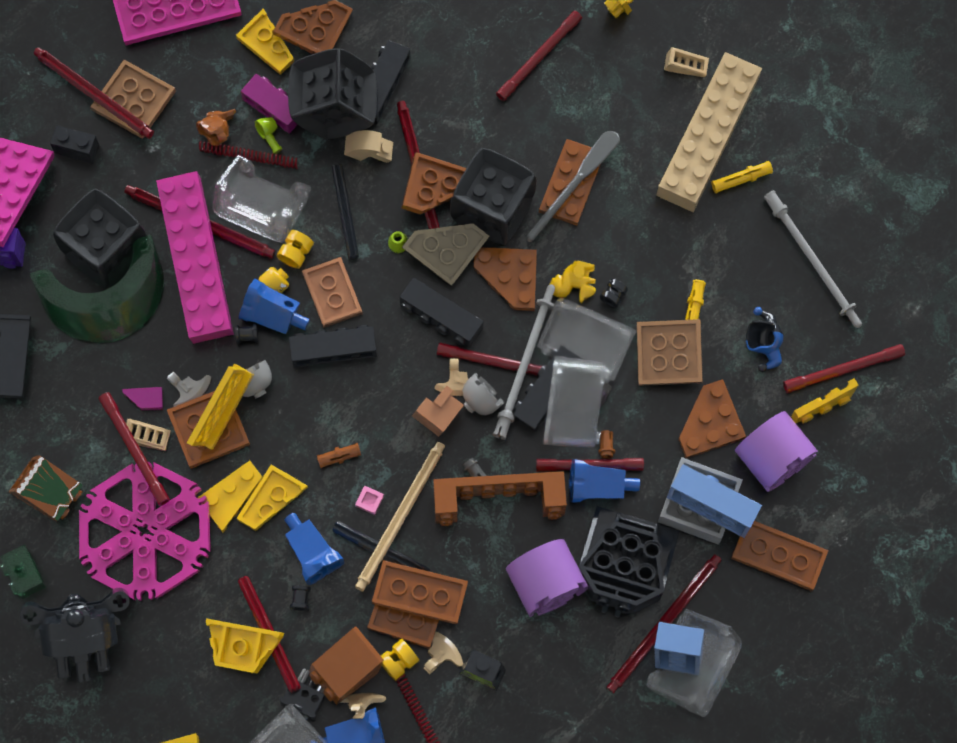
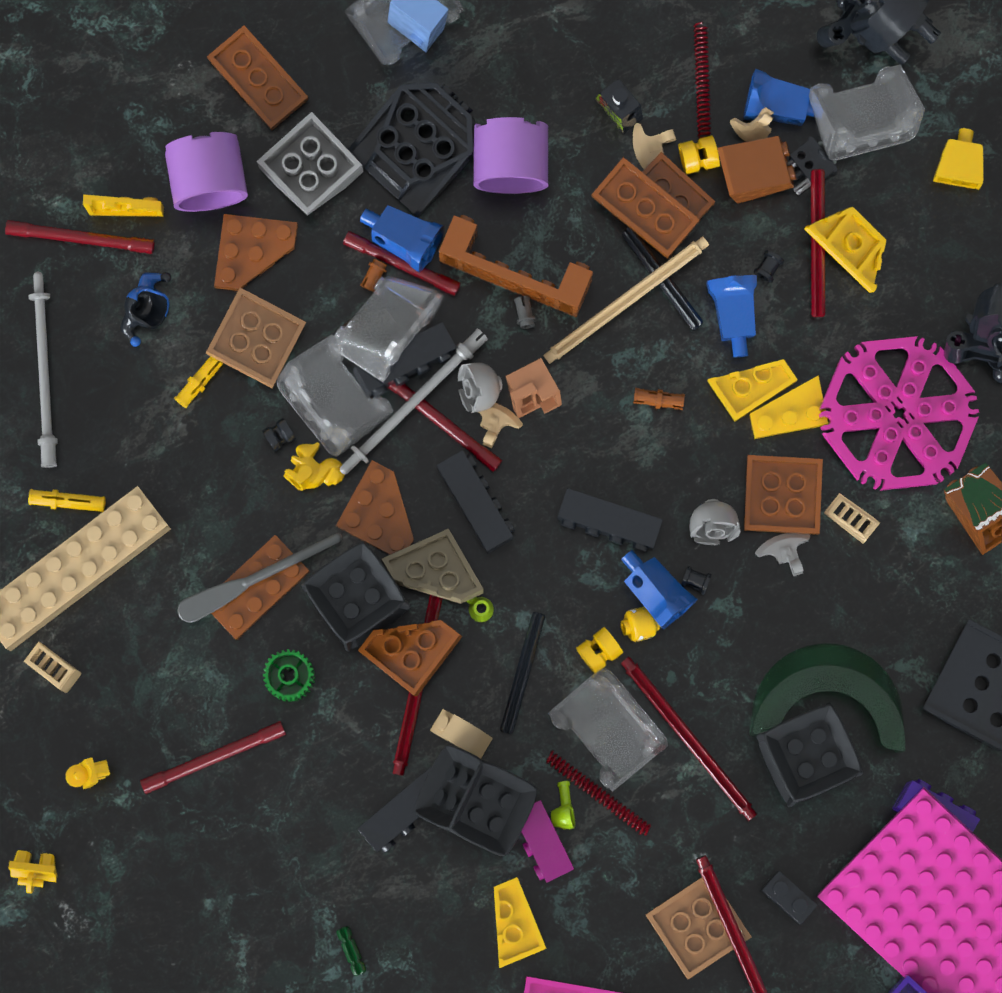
camera: 150 degrees left, 10 degrees up
(146, 397) = (835, 561): magenta tile -> none
(155, 486) = (878, 555): dark red piece -> none
(194, 257) = (714, 690): dark pink brick -> none
(215, 126) = (622, 842): dark orange animal -> none
(221, 407) = (763, 495): yellow fence -> none
(314, 27) = (451, 914): dark orange plate -> none
(332, 292) = (580, 586): nougat tile -> none
(369, 500) = (649, 336): bright pink tile -> none
(517, 138) = (303, 674): none -> green brick
(670, 615) = (411, 67): dark red piece -> none
(713, 501) = (302, 142): medium blue brick -> none

